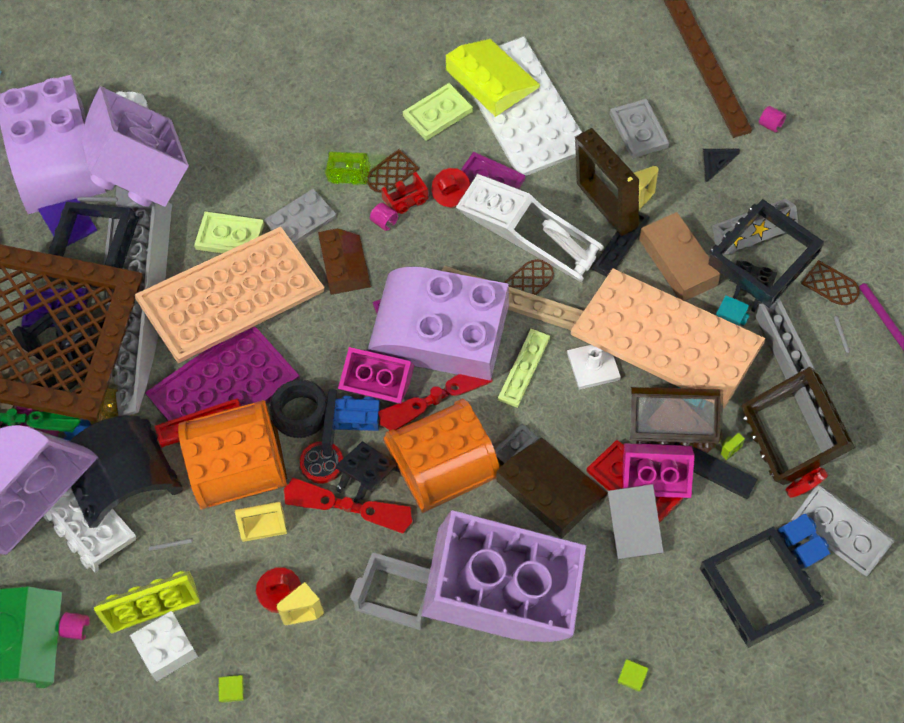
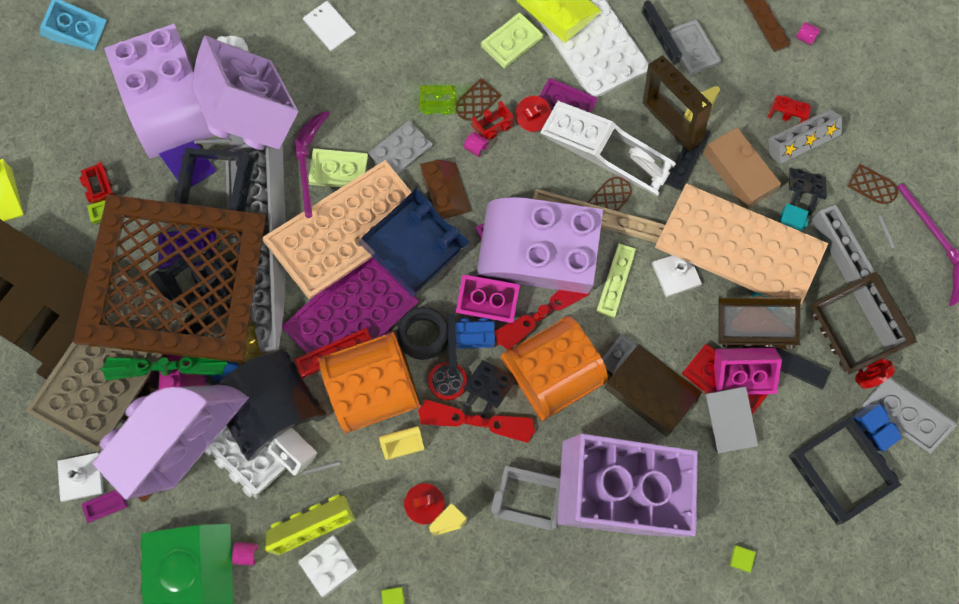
camera: 10 degrees left, 10 degrees up
(139, 521) = (292, 451): none -> white brick
(193, 204) = (302, 141): none -> magenta piece
(238, 88) = (328, 25): none -> white container
(300, 313) = (413, 243): none -> dark blue piece
(605, 111) = (661, 33): none -> black tile
(716, 160) = (762, 74): black tile -> none
(732, 445) = (805, 342): lime plate -> none
(740, 194) = (790, 107): none -> red window
(748, 282) = (806, 190): black window -> none

